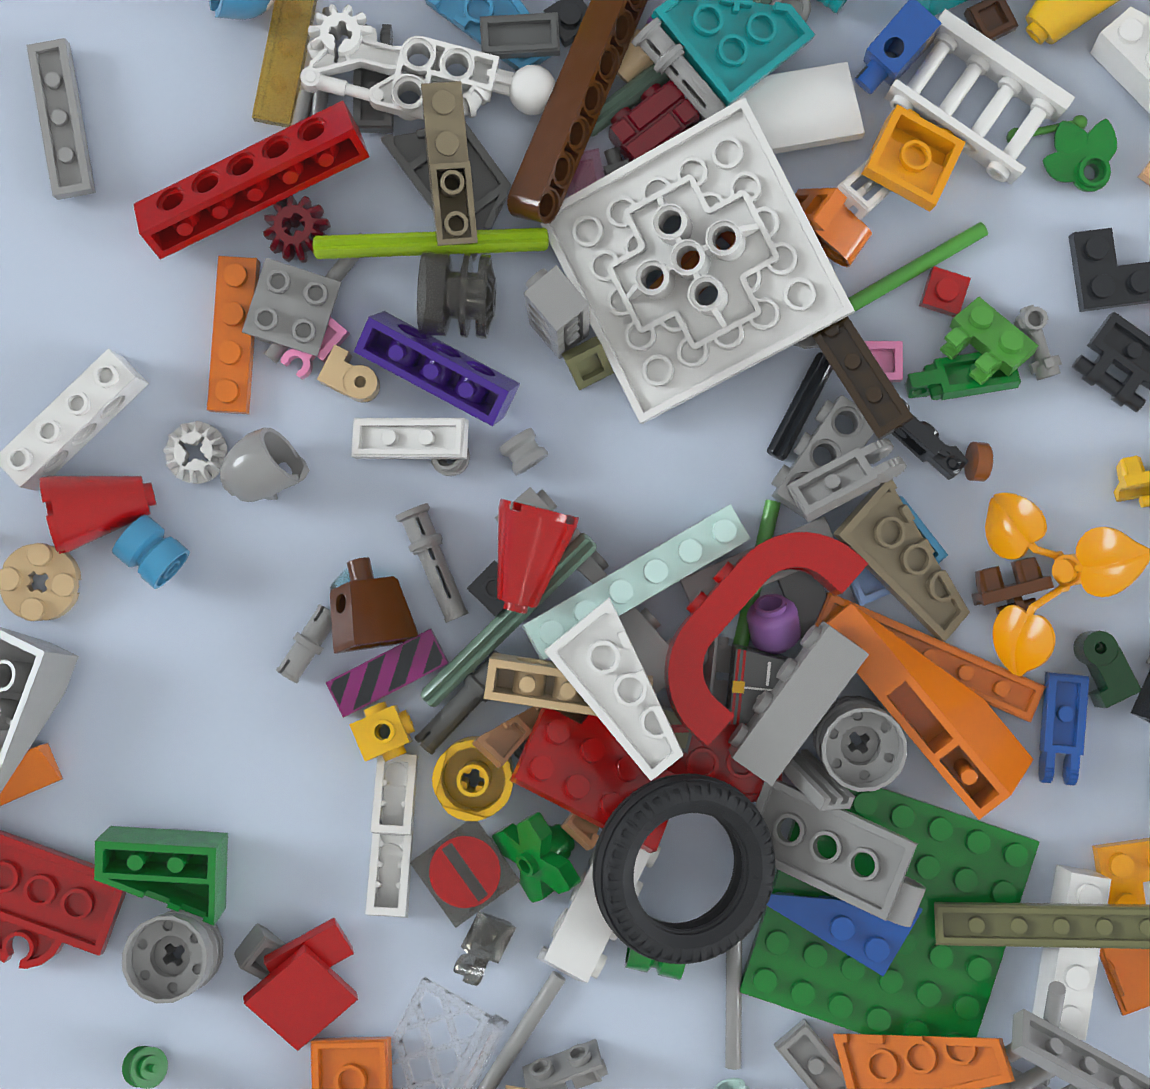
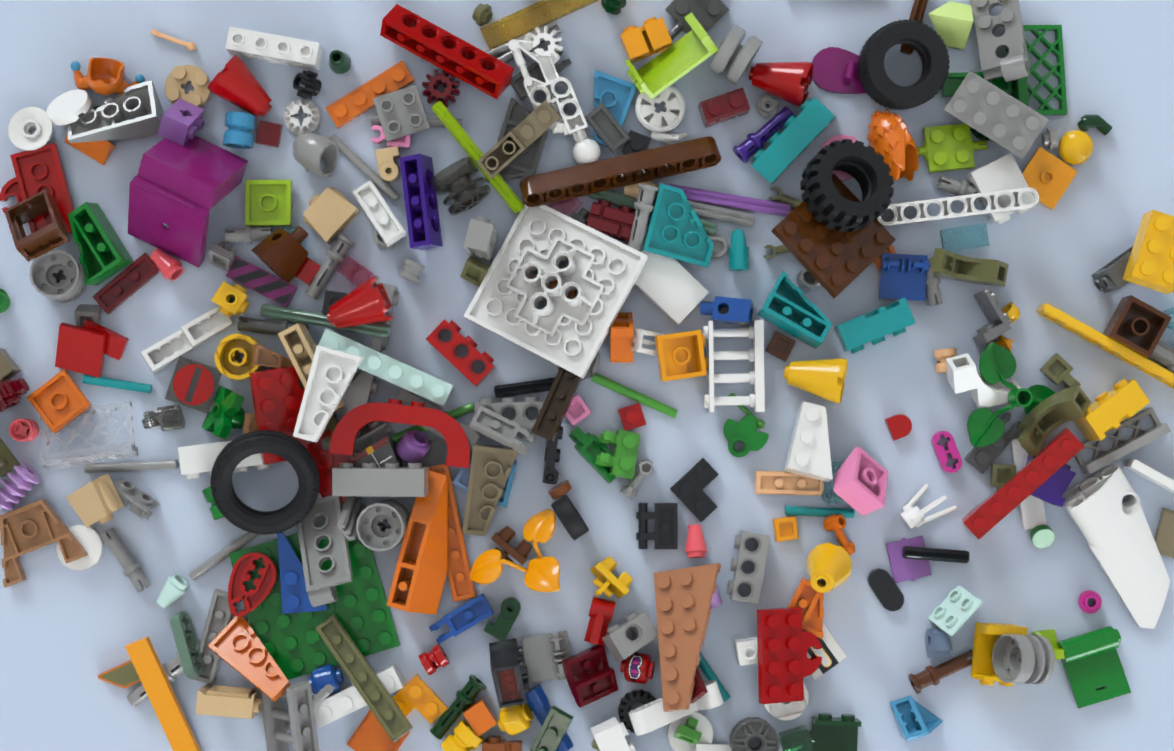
camera: 40 degrees right, 0 degrees up
(80, 623) = (181, 122): none -> medium lavender brick
(103, 941) = (43, 239): none -> reddish brown window
(155, 410) = (307, 84): none -> black gear
(163, 345) = (342, 65): none -> dark green cone
(170, 689) = (179, 189): none -> magenta container
(186, 515) = (269, 134): none -> dark red tile
(235, 98) = (482, 14): none -> olive plate
(253, 865) = (126, 283): none -> dark red tile
(269, 788) = (168, 266): none -> coral cone
(283, 584) = (268, 203): none -> lime plate
(312, 704) = (221, 257): none -> light grey tile
(335, 415) = (365, 169): none -> light grey bar
(360, 508) = (329, 214): none -> tan torso
(385, 978) = (116, 383): none -> teal bar
(419, 596) = (307, 271): none -> red tile
(470, 531) = (355, 272): none -> clear pink leg
(709, 468) = (449, 348): none -> red brick
(784, 995) = (241, 572): none -> red piece
(1019, 981) = (326, 675): none -> blue head
(1032, 472) = (569, 517): none -> black tyre
(1094, 807) = (434, 659): none -> red wheel

